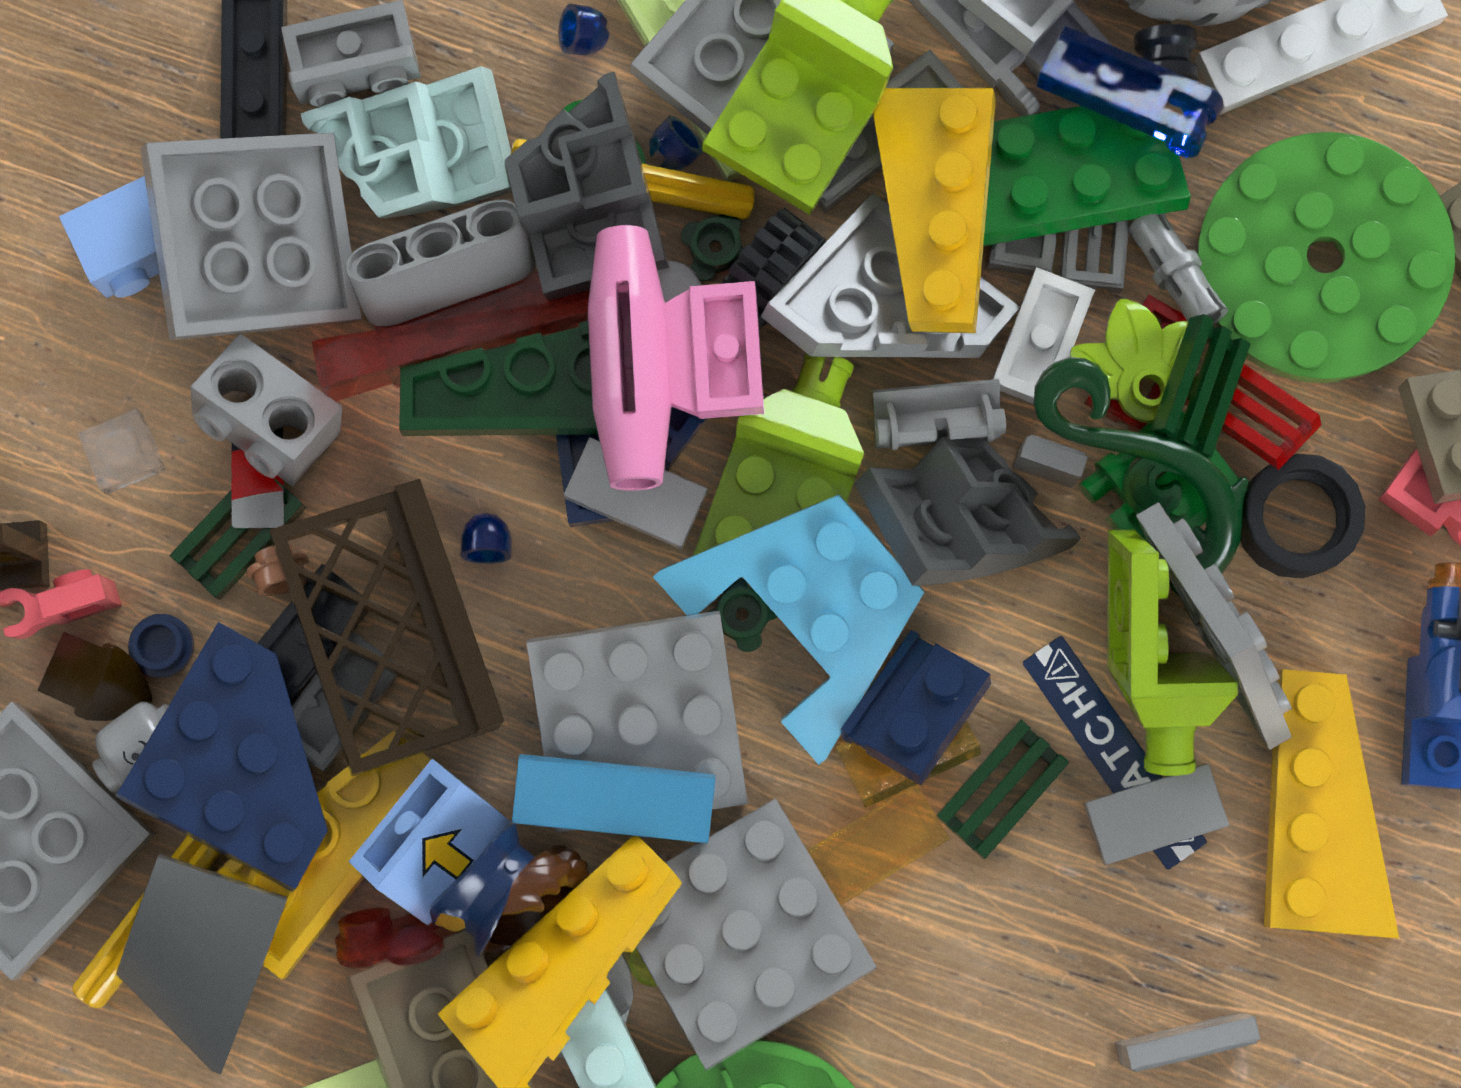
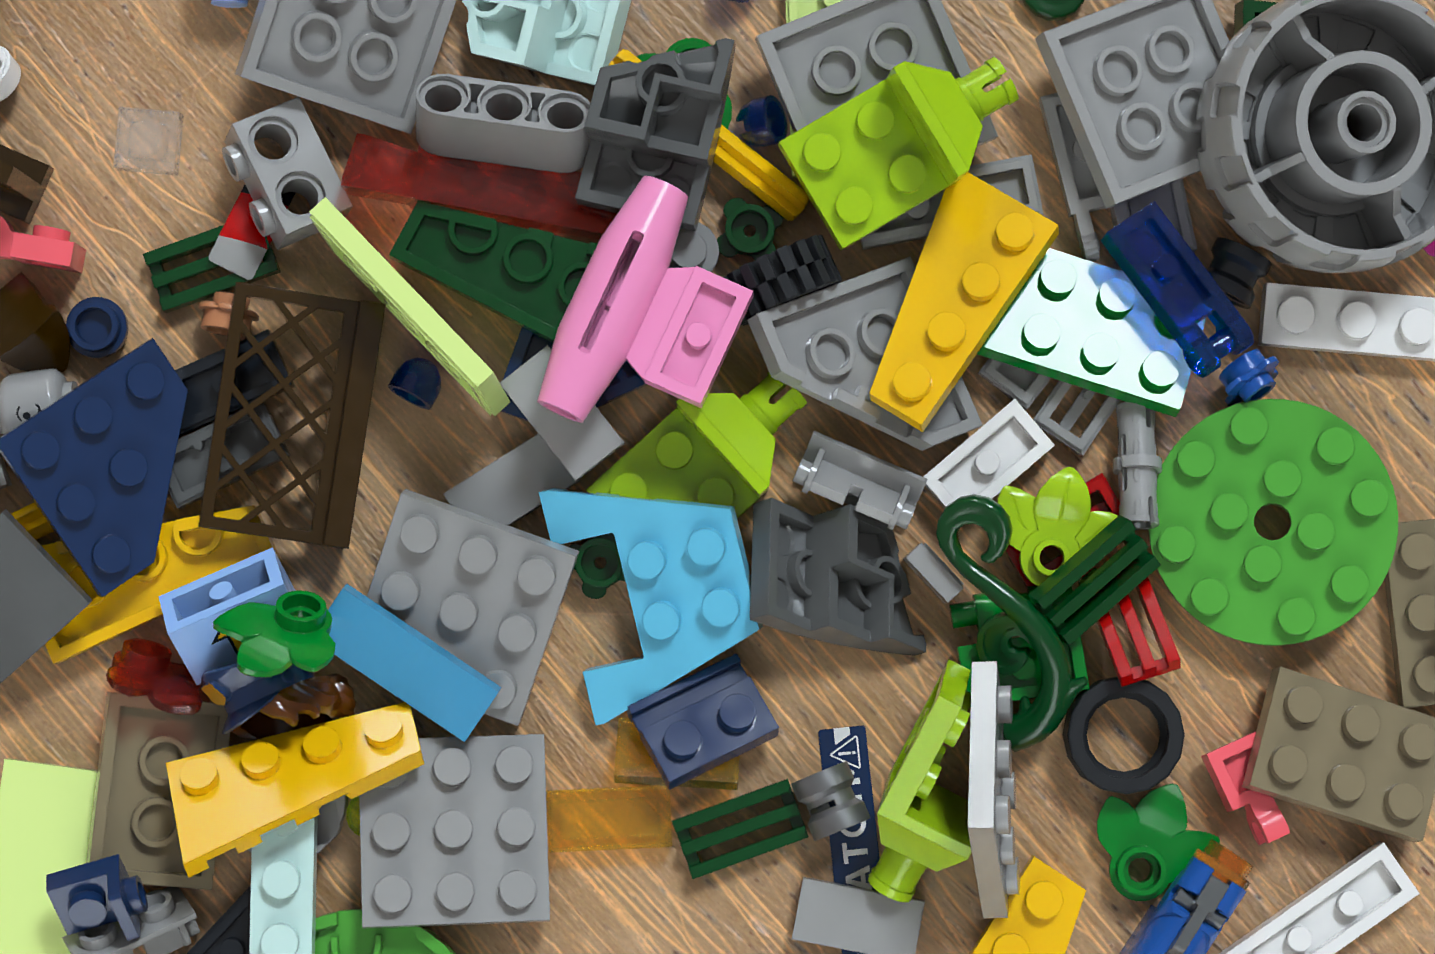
camera: 35 degrees right, 5 degrees up
(445, 467) = (409, 308): none -> yellowish green tile
(485, 830) = (281, 634): none -> green plate
(624, 582) = (512, 483): none -> light grey tile
(1059, 709) = (825, 787): none -> flat silver wheel
(1231, 141) = (1249, 377): none -> blue plate
(1372, 592) = (1150, 832): none -> green plate

